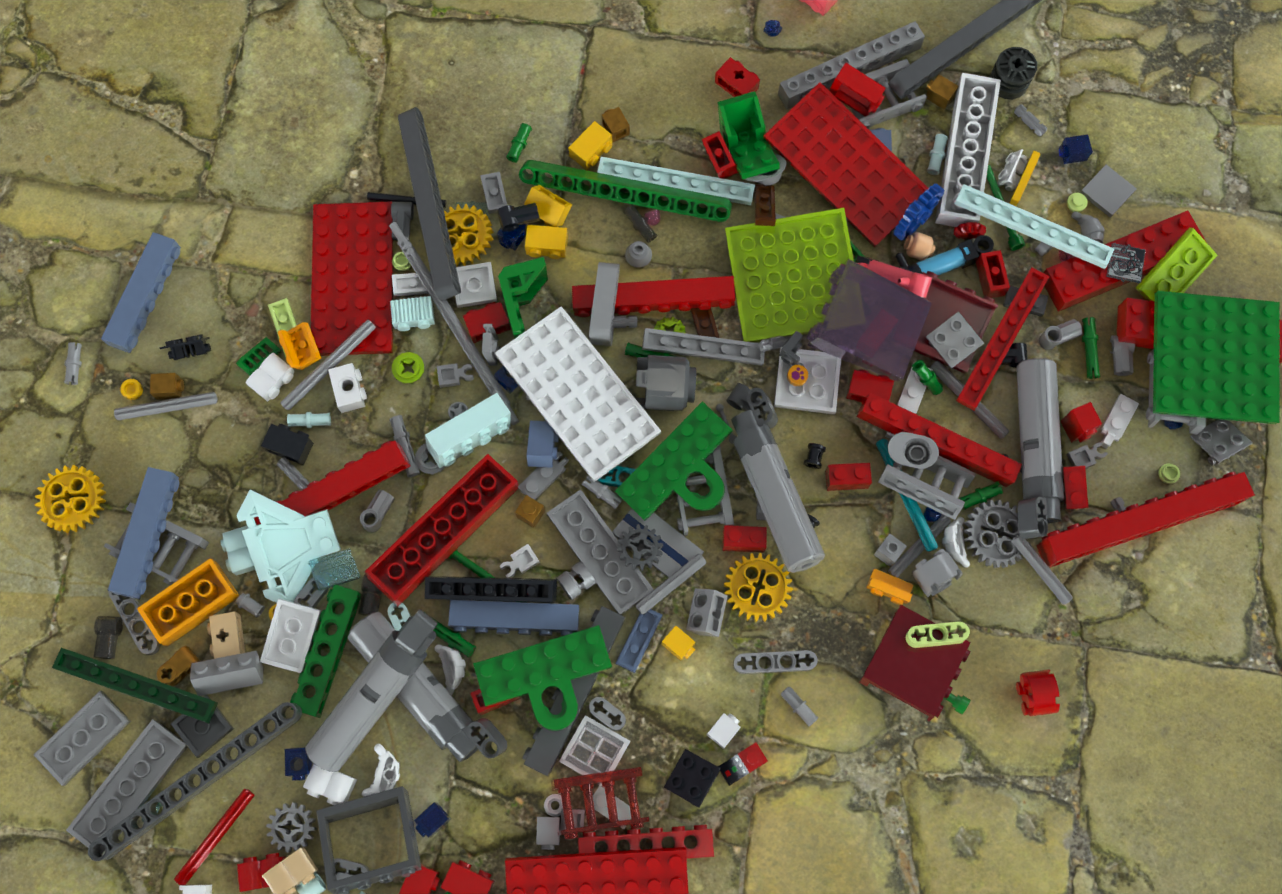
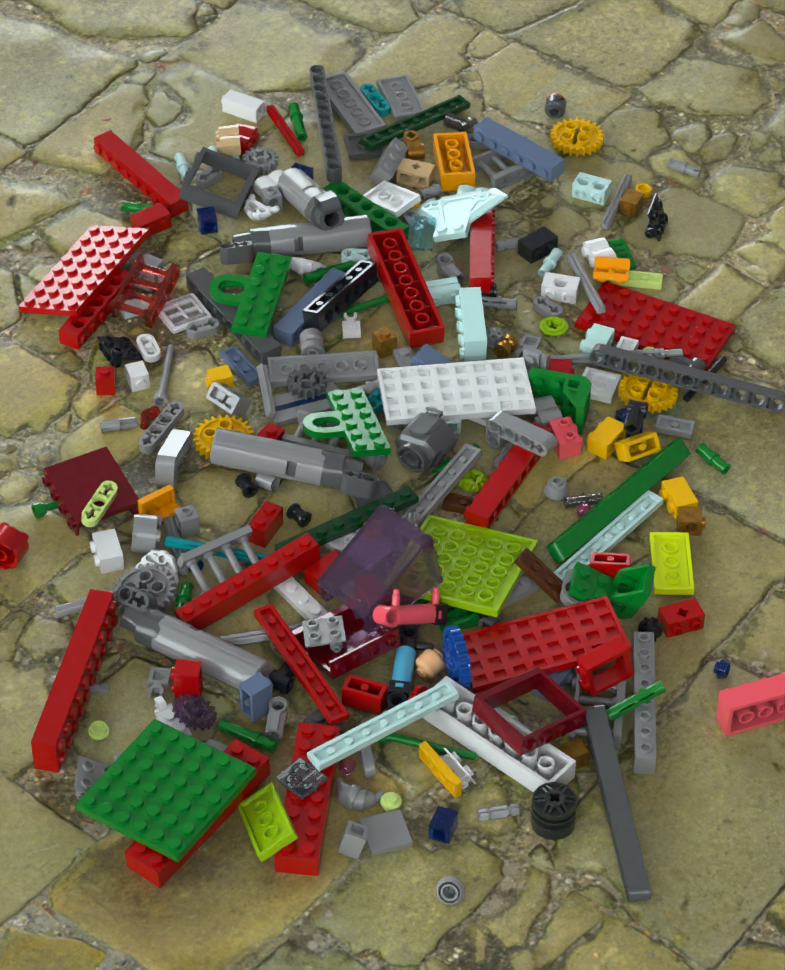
camera: 120 degrees right, 30 degrees down
(21, 550) = (555, 105): none -> dark grey head
(92, 767) = (371, 93): none -> teal beam
(141, 293) = (720, 215): sand blue brick -> none
(154, 439) = (591, 188): none -> light aqua brick
(192, 830) = (296, 117): none -> green pin
(360, 767) = (271, 197): none -> light grey brick
(386, 388) = (547, 307): none -> light grey beam
(415, 497) = (444, 290): none -> light aqua brick
(468, 394) = (505, 347): none -> pearl gold wheel
(543, 305) = (545, 410): none -> light grey brick
(569, 273) = (567, 436): none -> coral brick
(672, 749) = (148, 348): none -> white plate
(674, 117) = (673, 563): none -> neon yellow plate
(735, 688) = (161, 397): none -> light grey piece
(768, 96) = (651, 625): none -> black gear
(769, 686) = (147, 416): none -> clear red arm
(805, 402) = (356, 518): none -> dark green plate
(814, 617) = (171, 456): none -> light grey beam
(873, 54) = (635, 700): none -> green pin
(913, 450) = (250, 550): light grey piece -> none
(927, 377) = (306, 605): green pin -> none
(931, 151) = (534, 679): none -> dark red window
(972, 600) = (107, 551): none -> white brick
(1061, 352) = (255, 696): none -> sand blue brick
(1075, 487) = (139, 650): red brick -> none
(1110, 395) = (194, 712): none -> clear purple gear
(1132, 111) = (450, 890): none -> light grey cone
(1143, 201) = (353, 839): none -> light grey brick

